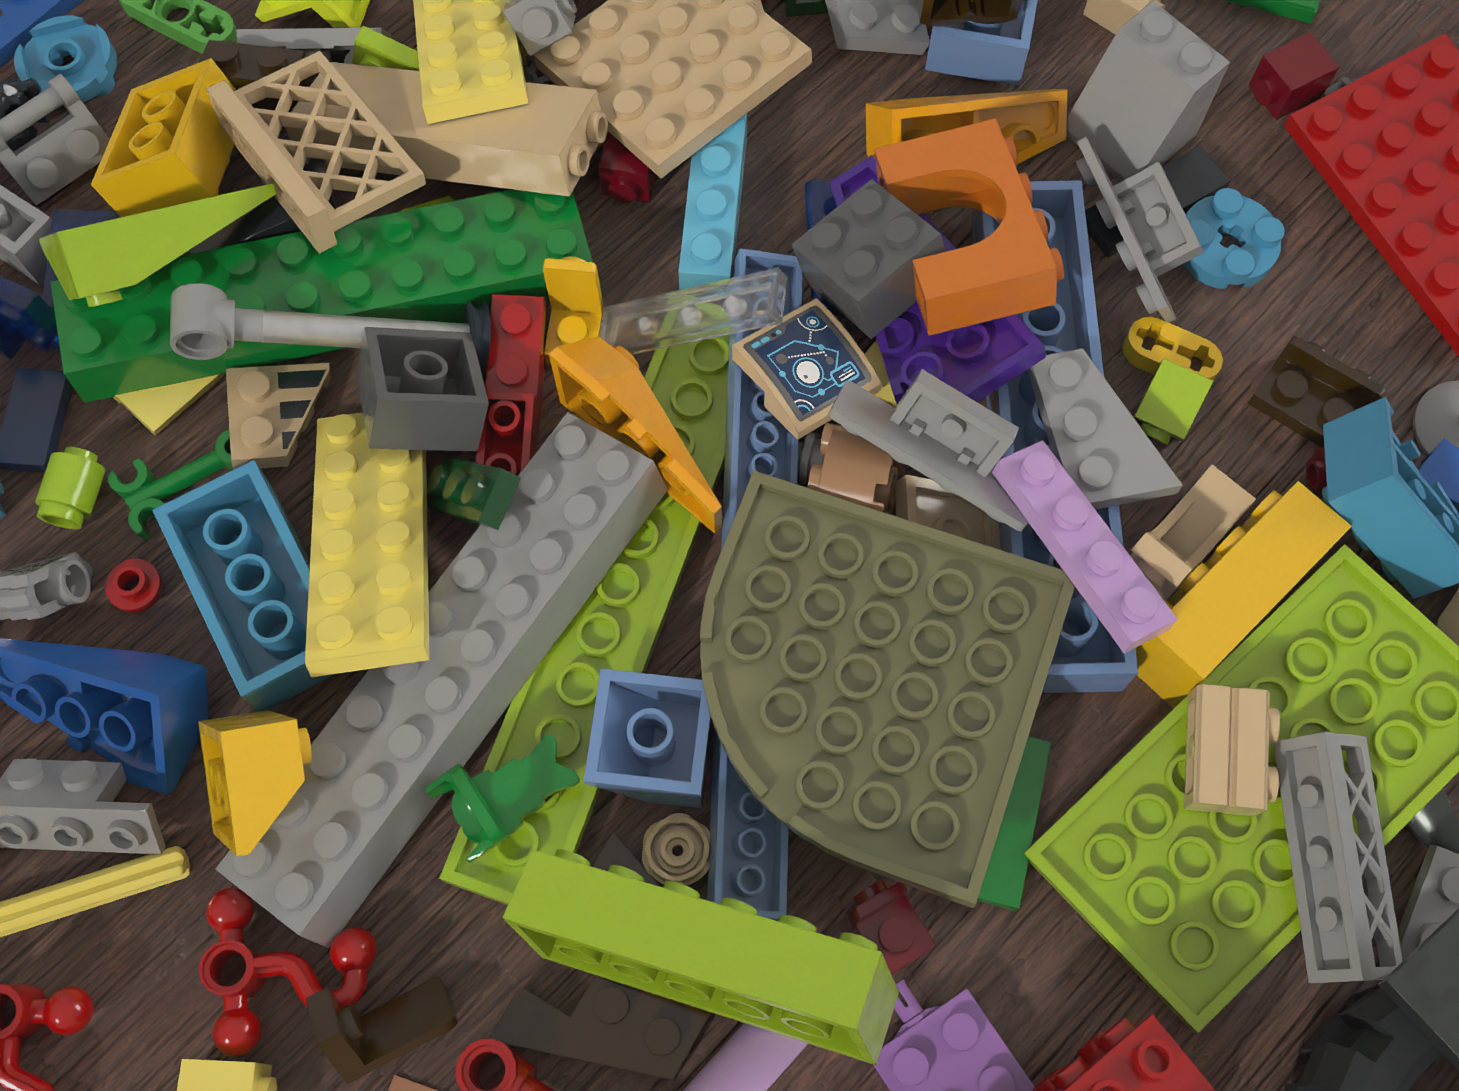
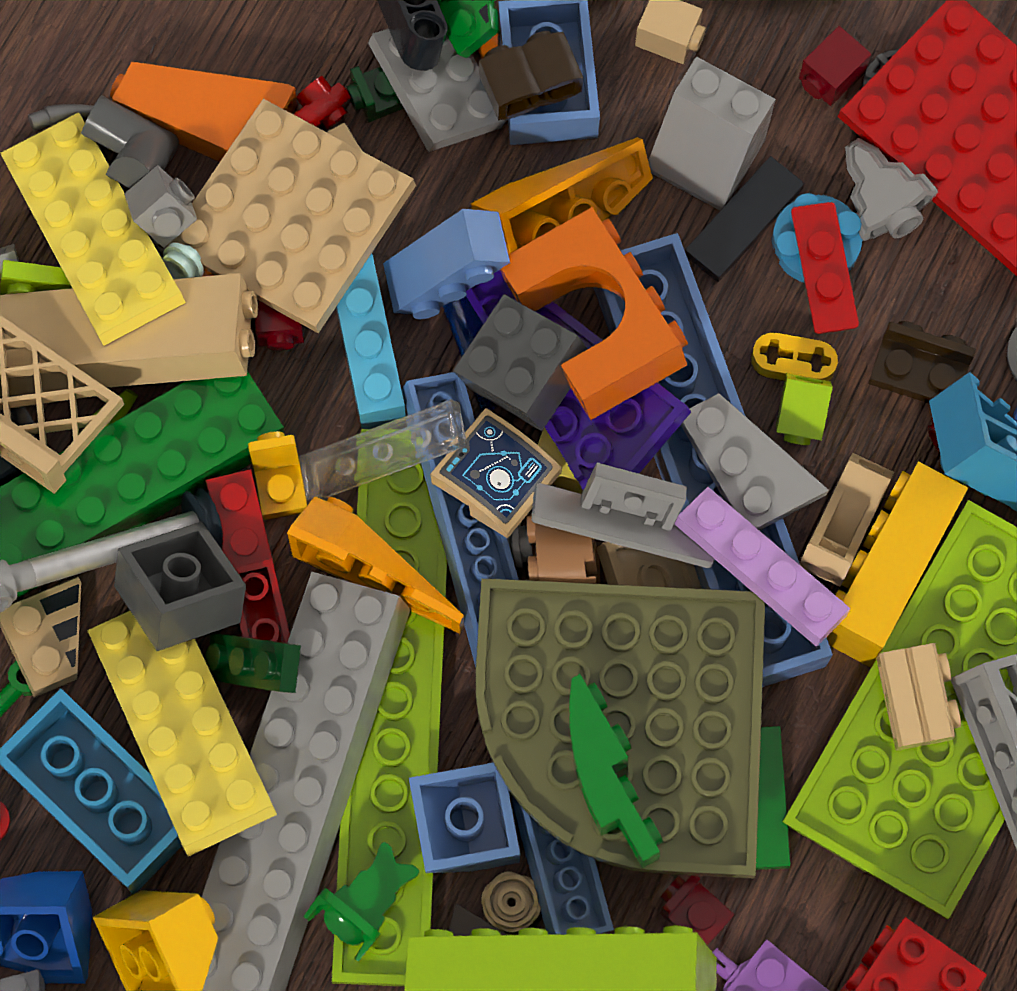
camera: 20 degrees left, 5 degrees up
(543, 69) = (182, 261): none -> light aqua plate
(822, 142) = (446, 263): none -> medium blue brick
(825, 704) = (597, 756): none -> green slope
(1150, 222) = (742, 249): light grey bracket -> none
(1232, 267) = (824, 267): none -> red piece
(1320, 212) = (885, 192): none -> light grey rock

